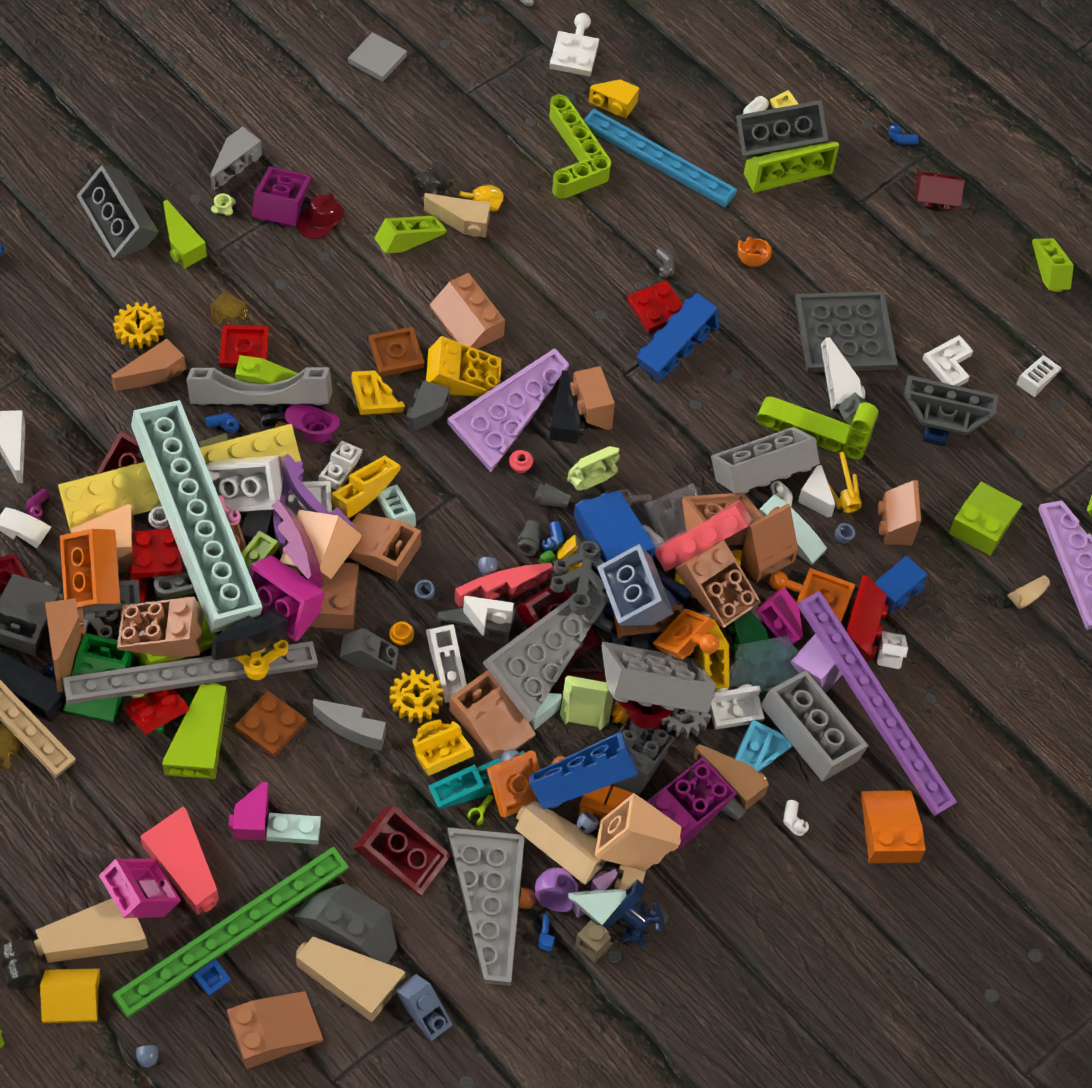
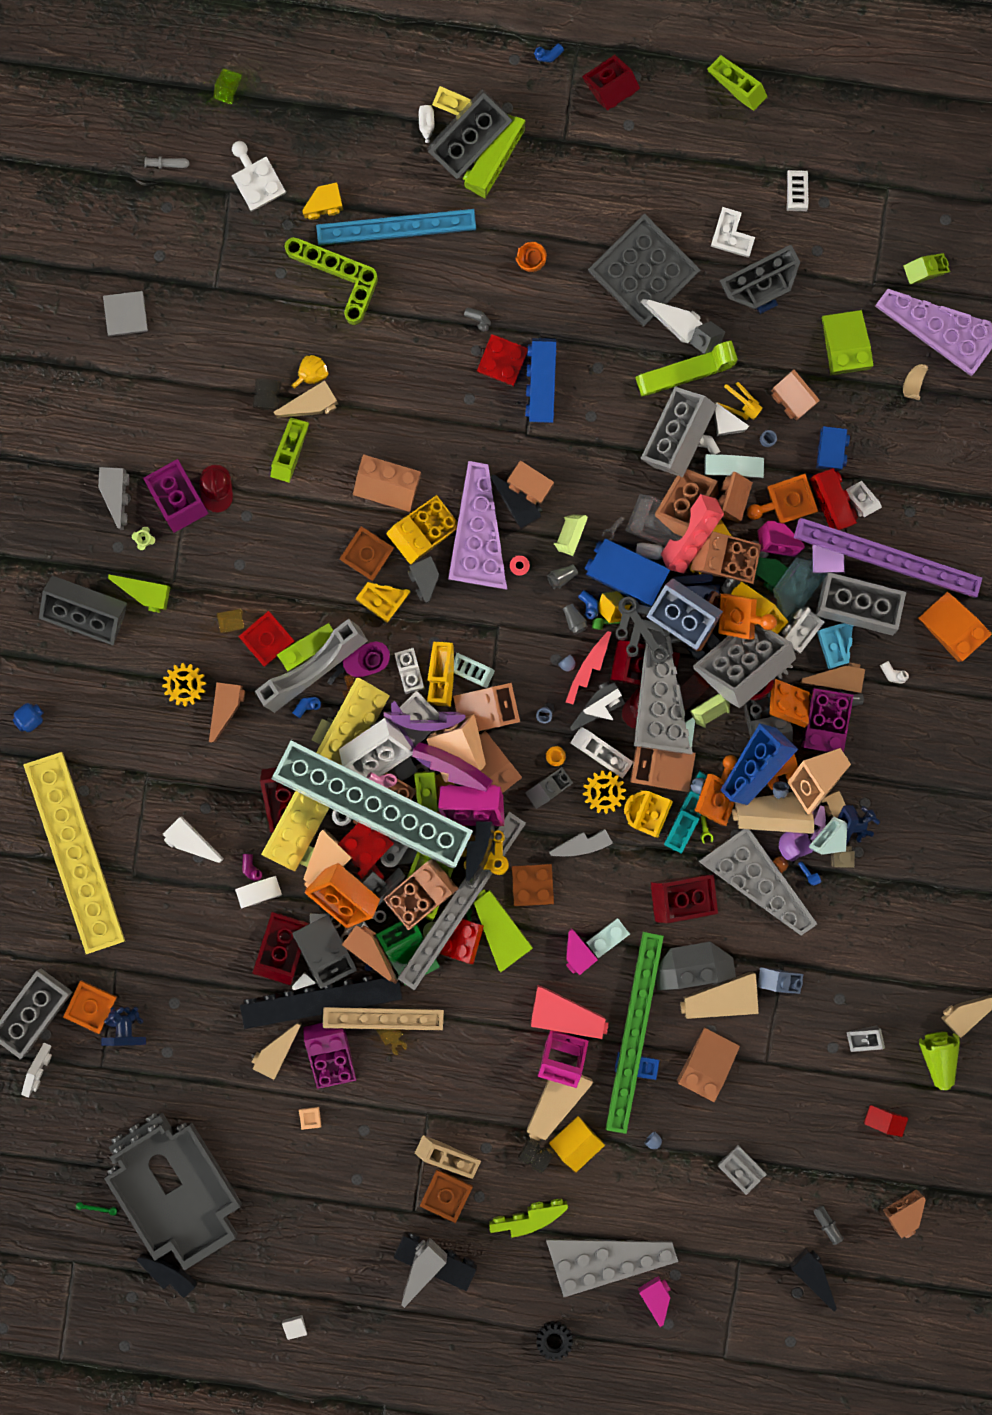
camera: 35 degrees left, 30 degrees up
(666, 754) = (789, 703): none -> orange plate

